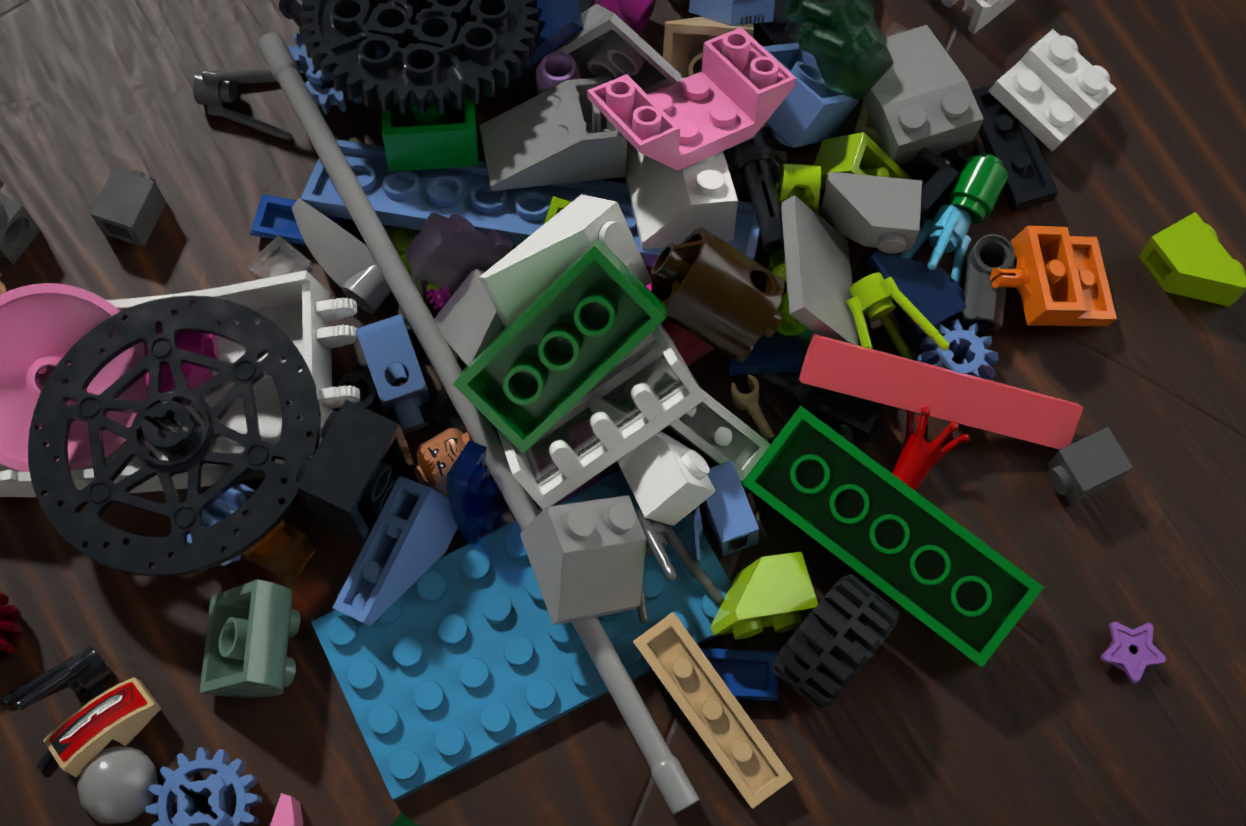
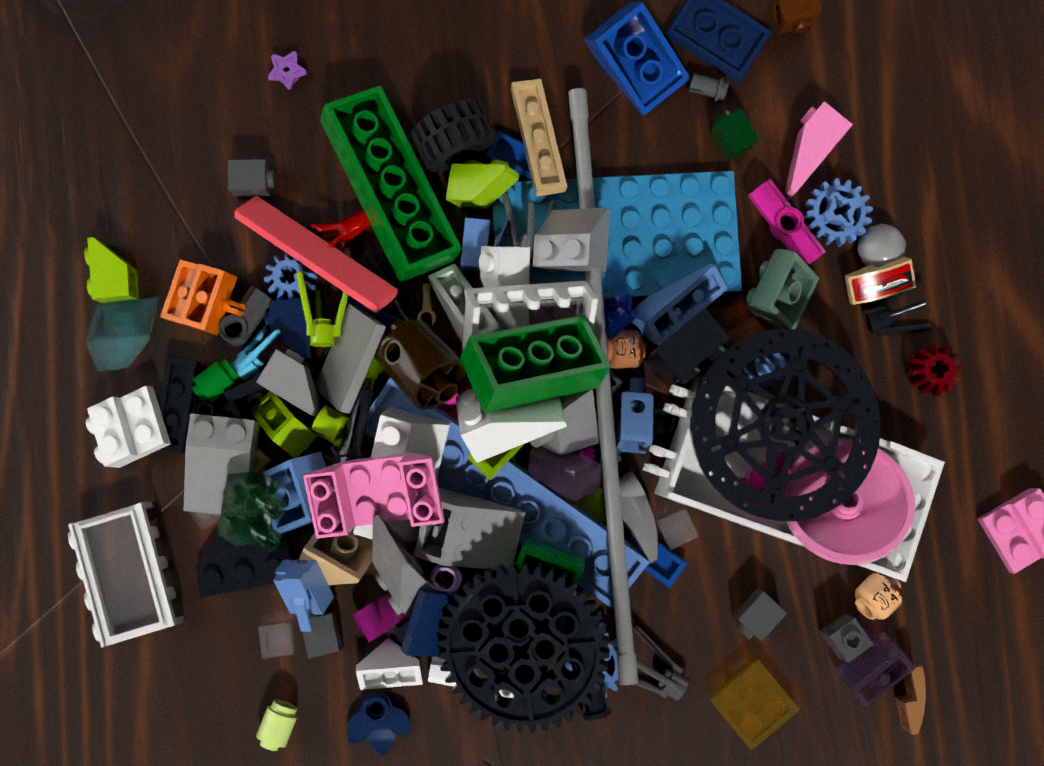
camera: 160 degrees left, 15 degrees up
(99, 106) = (754, 704): none -> clear yellow plate
(253, 733) = (774, 207): none -> dark pink piece
(1134, 196) = (120, 332): none -> clear light blue slope

